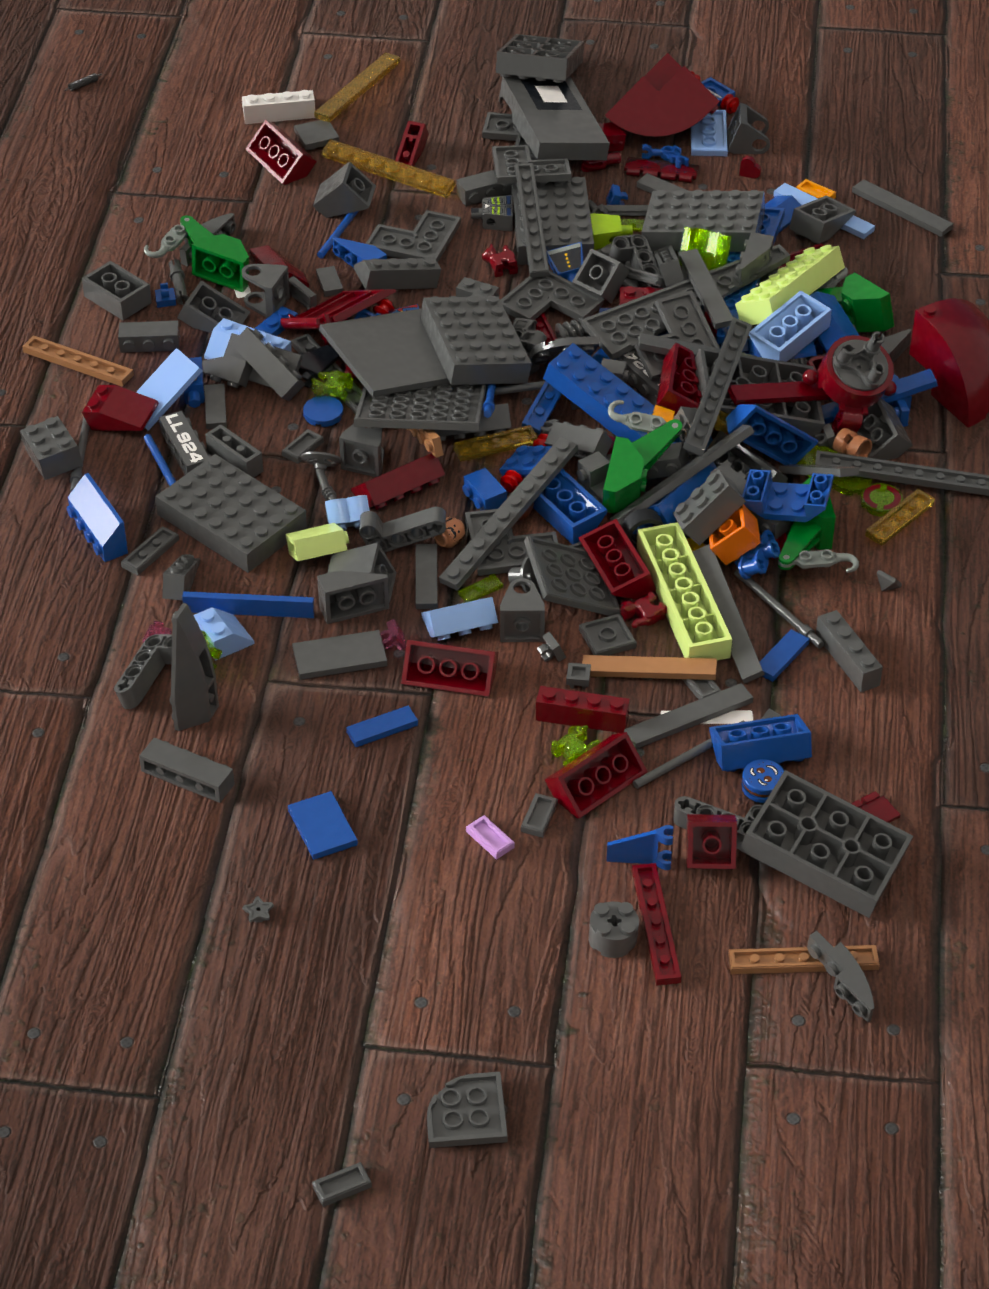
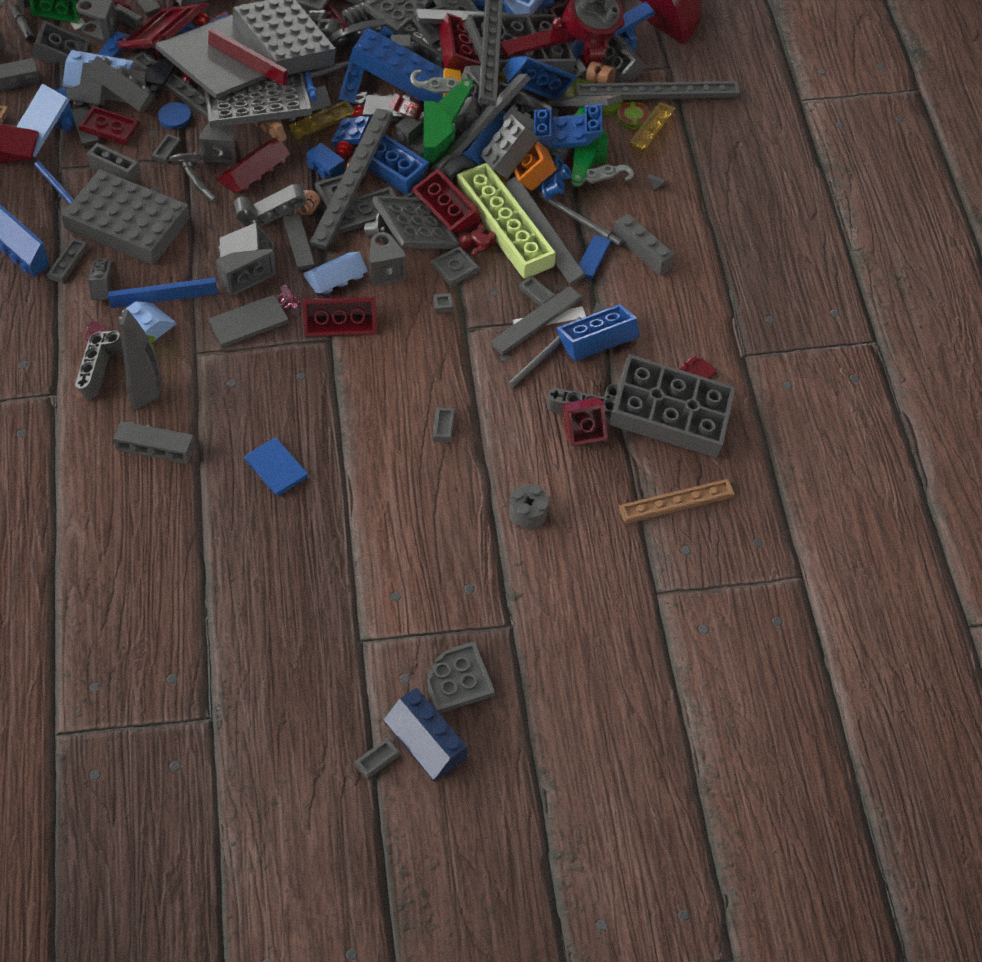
camera: 15 degrees left, 10 degrees up
(165, 296) = (15, 37): blue tile -> none
(183, 441) = (68, 163): dark grey brick -> none
(243, 409) = (109, 125): none -> dark red tile
(258, 916) = (245, 553): dark grey plate -> none
(317, 541) = (204, 229): yellowish green brick -> none
(334, 385) = (179, 92): clear neon green animal -> none
(346, 511) = (220, 200): light blue brick -> none
(382, 726) = (299, 374): blue tile -> none
(408, 1168) = (426, 734): none -> slope
(423, 355) = (247, 56): none -> dark red tile
(480, 588) = (344, 244): clear neon green piece -> none
(490, 837) = (411, 450): lavender tile -> none
(551, 648) = (414, 285): dark grey tile -> none
(572, 744) = (454, 364): clear neon green animal -> none
(582, 709) = (454, 331): dark red brick -> none
(593, 441) = (405, 107): none -> leg
(596, 775) = (479, 383): dark red slope -> none
(643, 848) = (533, 437): blue flag -> none
(651, 667) = (497, 286): medium nougat tile -> none
(656, 924) = (559, 495): dark red plate -> none
(760, 779) = (607, 363): blue head -> none
(849, 980) = (719, 512): dark grey slope -> none

